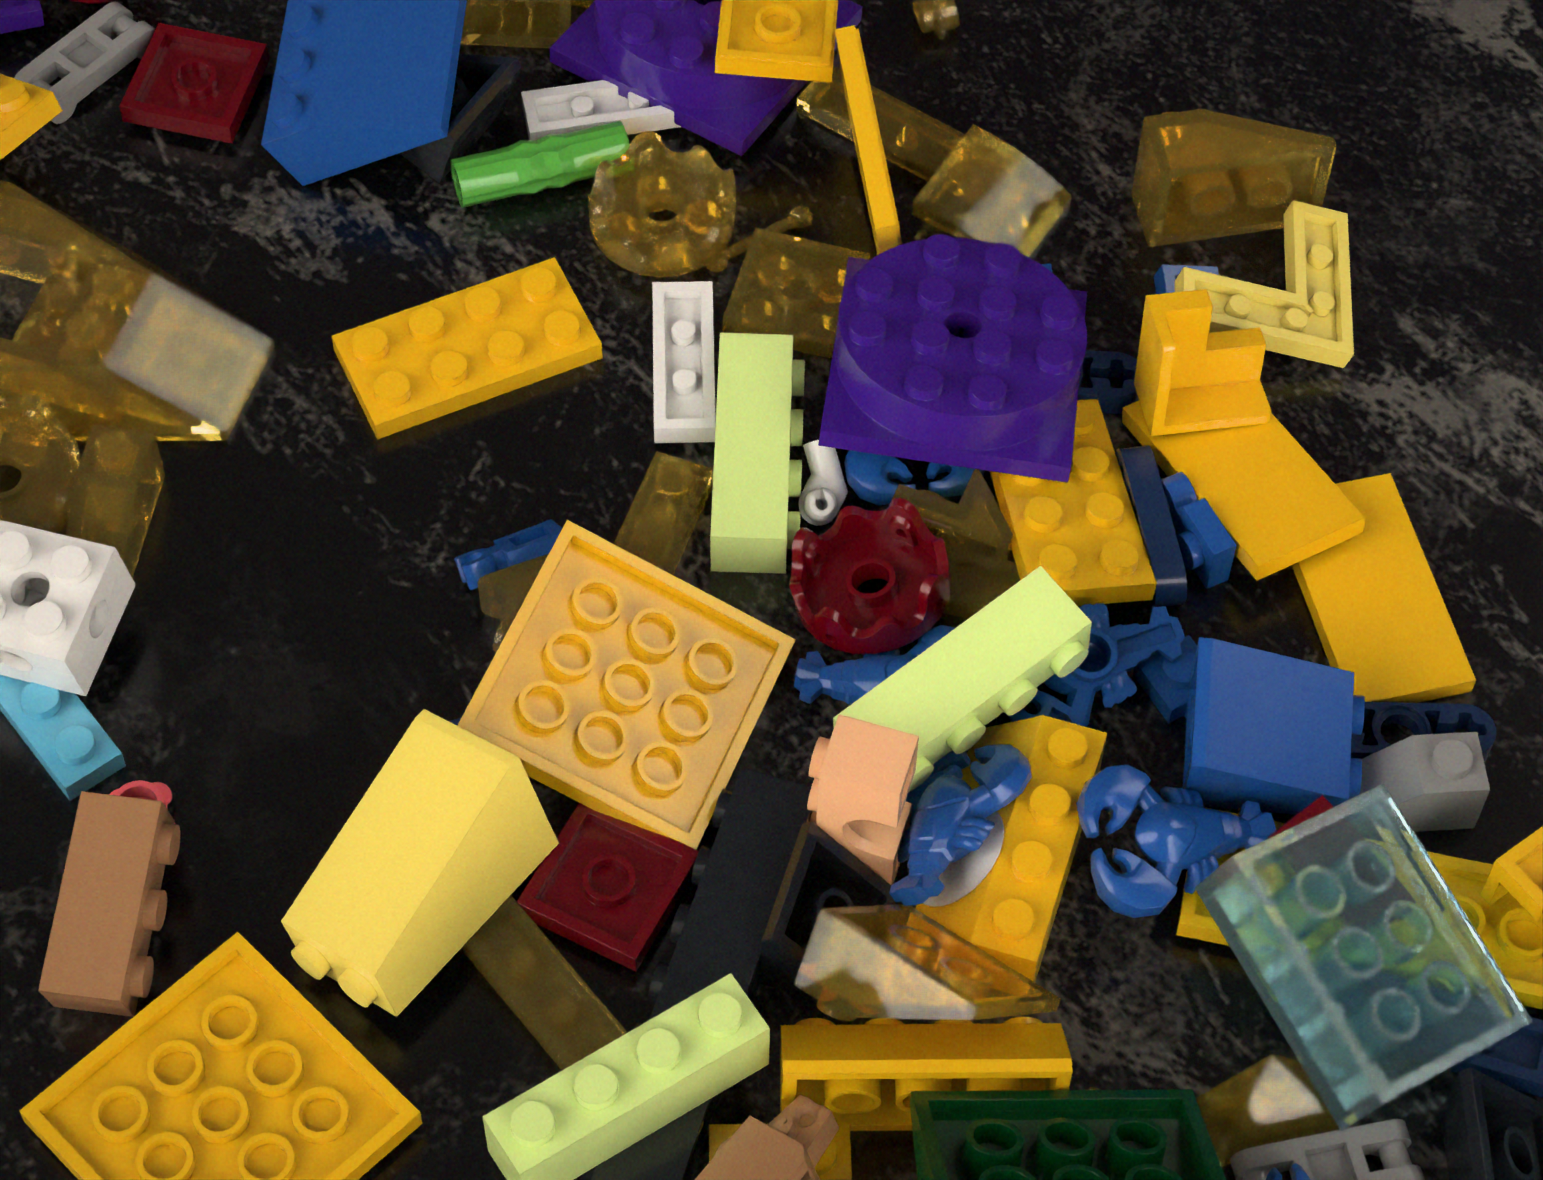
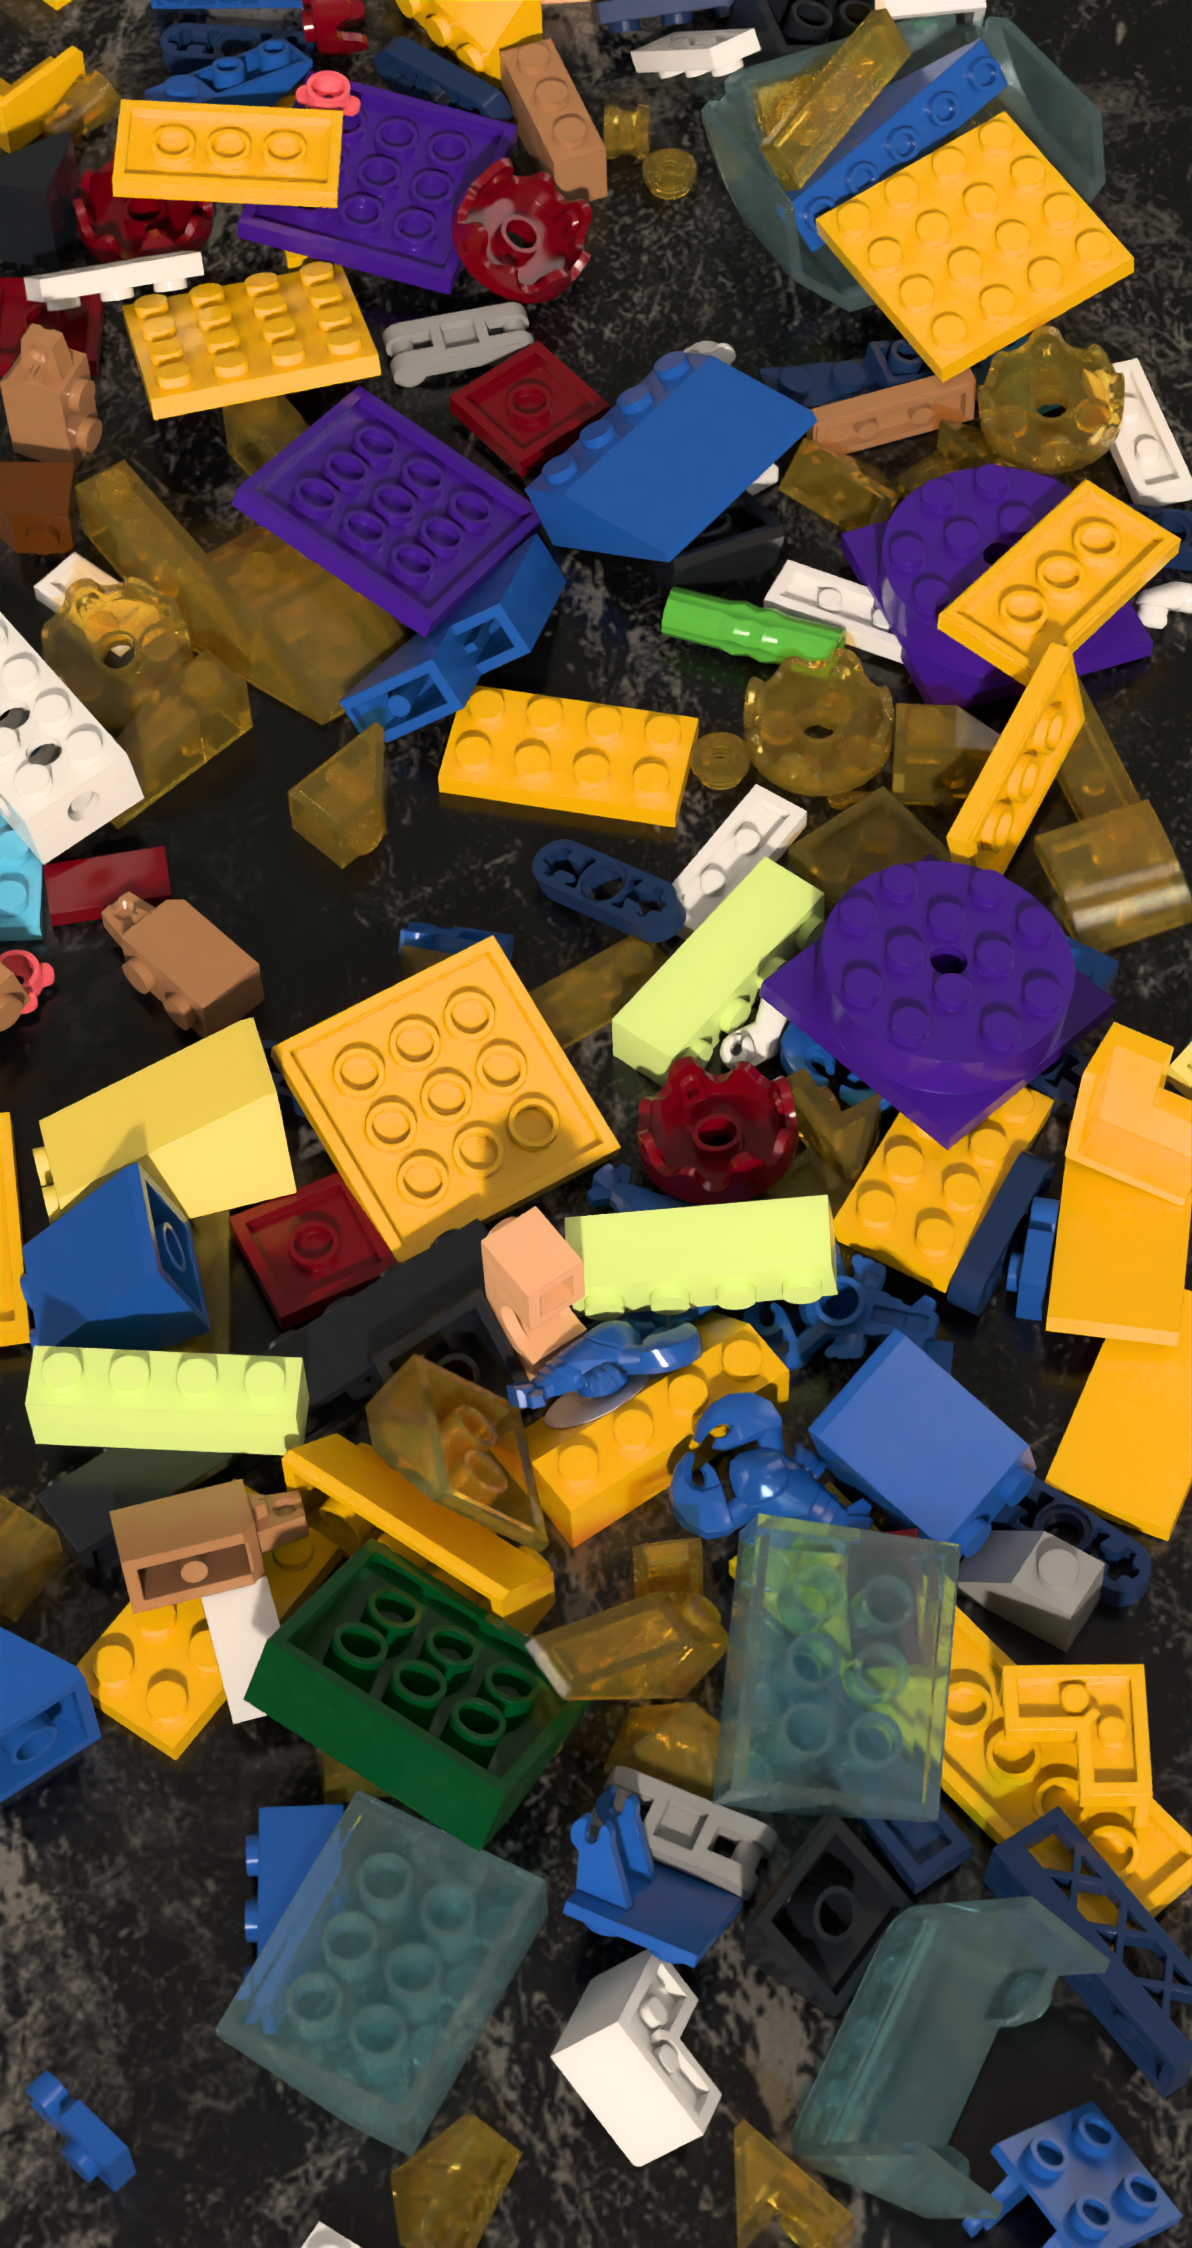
camera: 40 degrees right, 0 degrees up
(153, 683) = (87, 886): none -> dark red tile
(162, 221) = (388, 510): none -> dark purple plate
(284, 707) = (184, 963): none -> medium nougat hinge
(302, 329) = (487, 630): none -> blue slope
(315, 488) = (345, 799): none -> clear yellow slope
(468, 1020) = (116, 1271): none -> blue slope
(582, 422) = (622, 909): none -> dark blue beam
(603, 293) = (720, 772): none -> clear yellow plate
(781, 173) = (939, 749): none -> clear yellow slope
(1148, 969) = (667, 1567): none -> clear yellow slope
(1192, 1039) = (634, 1650): none -> clear yellow slope

